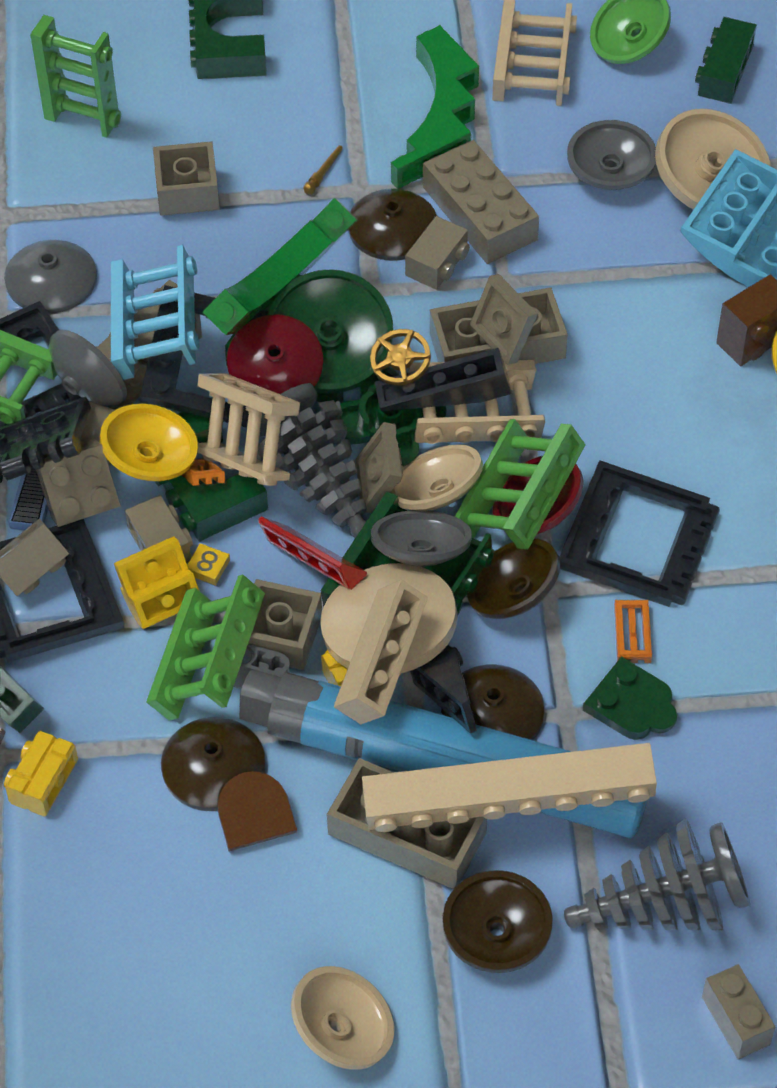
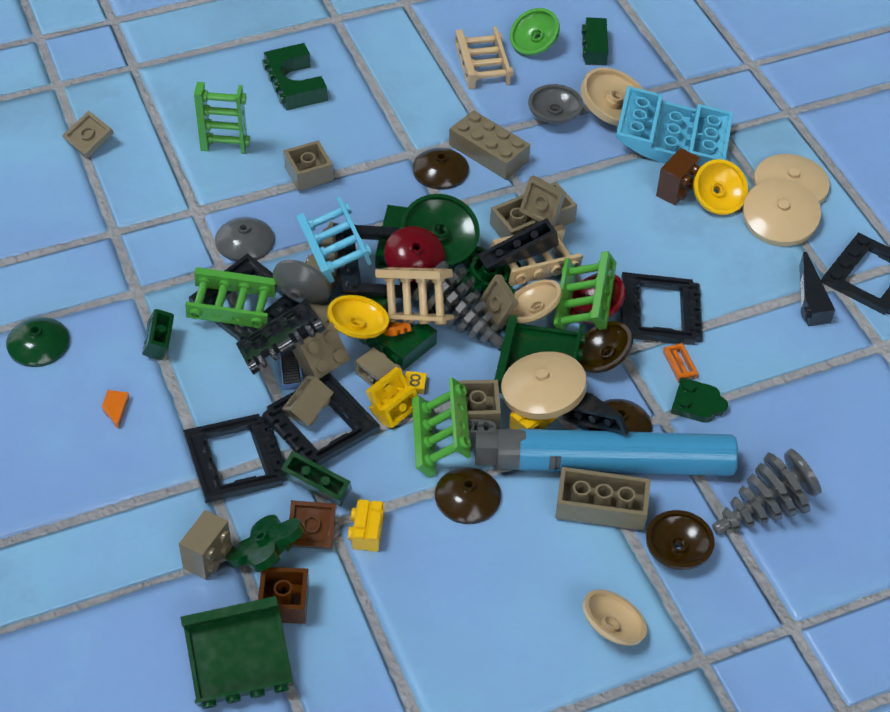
camera: 20 degrees left, 5 degrees down
(254, 810) = (506, 514): reddish brown tile -> none
(257, 291) = (401, 196): green arch -> none
(312, 553) = (480, 360): red slope -> none
(317, 177) = (384, 151): pearl gold piece -> none
(380, 652) = (557, 400): tan brick -> none
(400, 356) = (489, 236): pearl gold wheel -> none
(421, 537) = (543, 335): dark grey dish -> none
(437, 253) = (476, 177): dark tan brick -> none
(453, 106) = (449, 95): green arch -> none
(509, 787) = (660, 459): tan brick -> none
(738, 1011) = (836, 555): dark tan brick -> none

